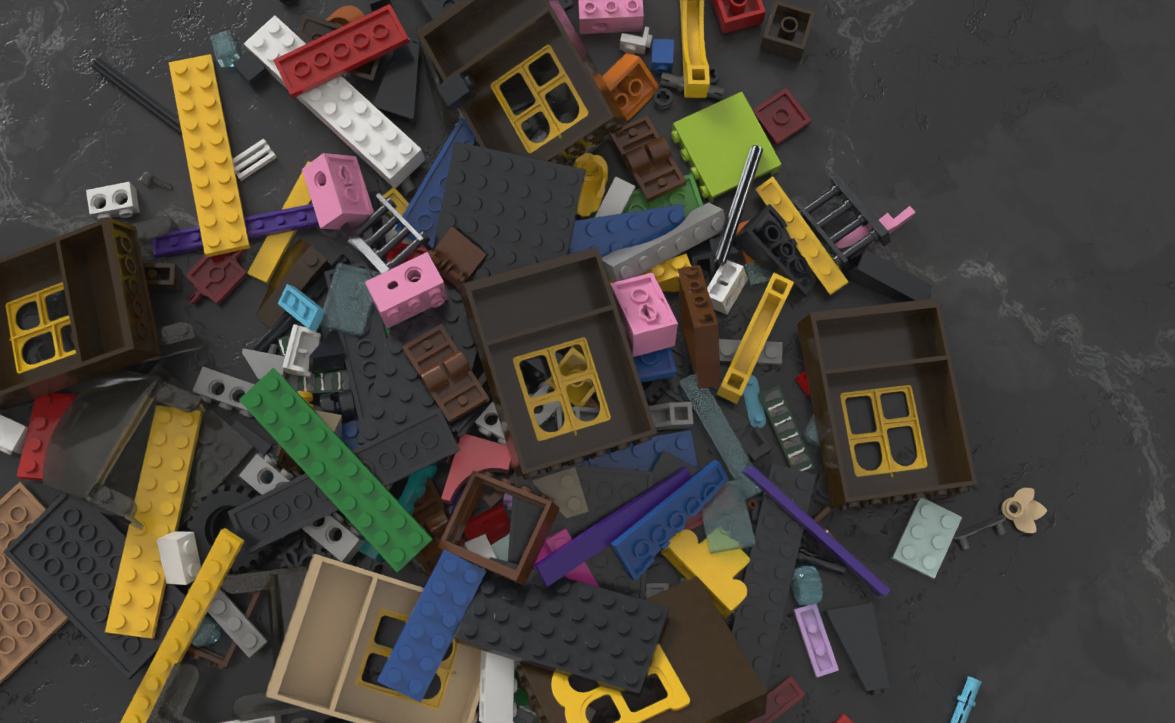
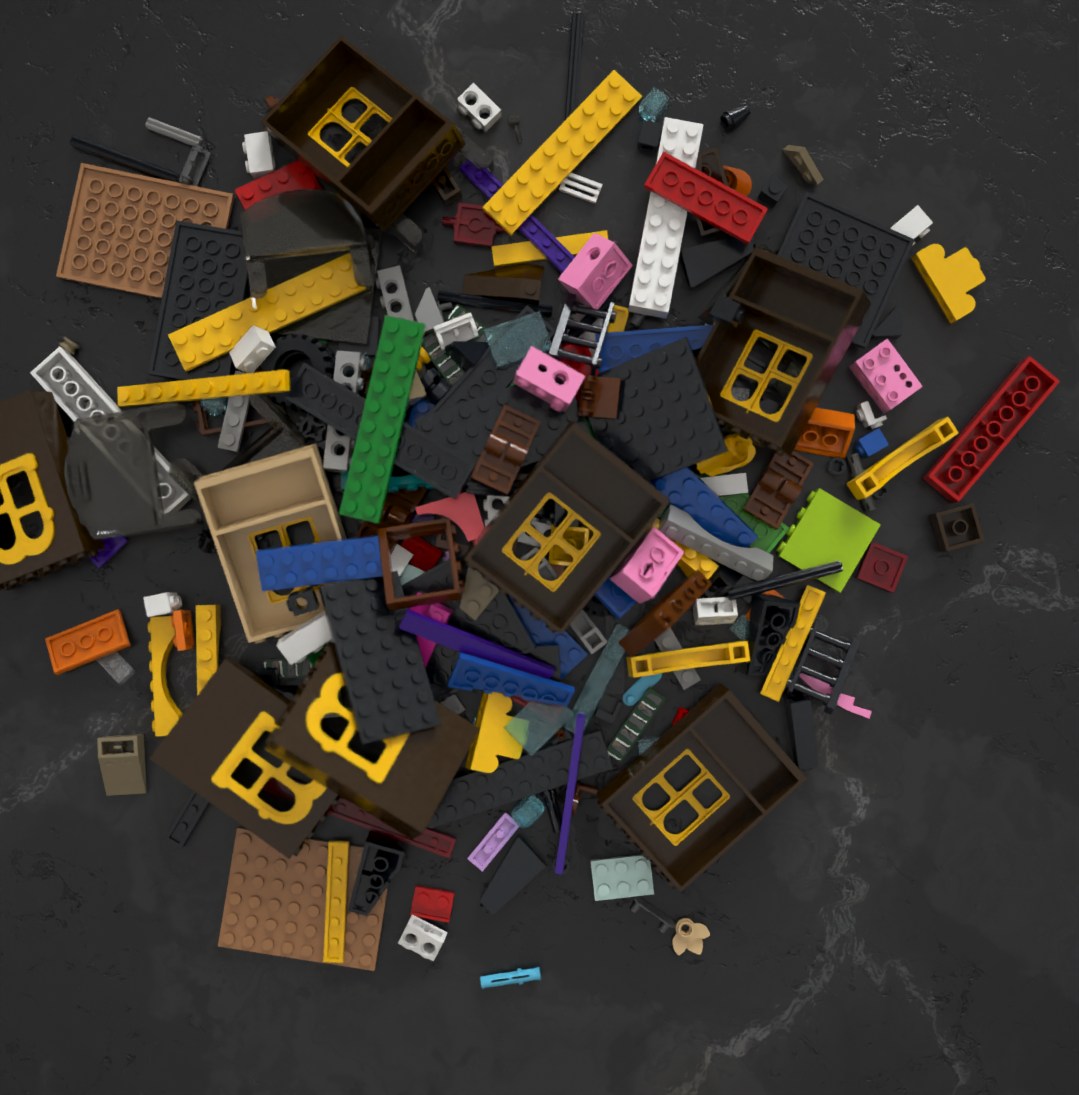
camera: 60 degrees right, 10 degrees up
(301, 307) = (488, 307): medium azure plate -> none
(455, 657) = (308, 594): none -> black brick

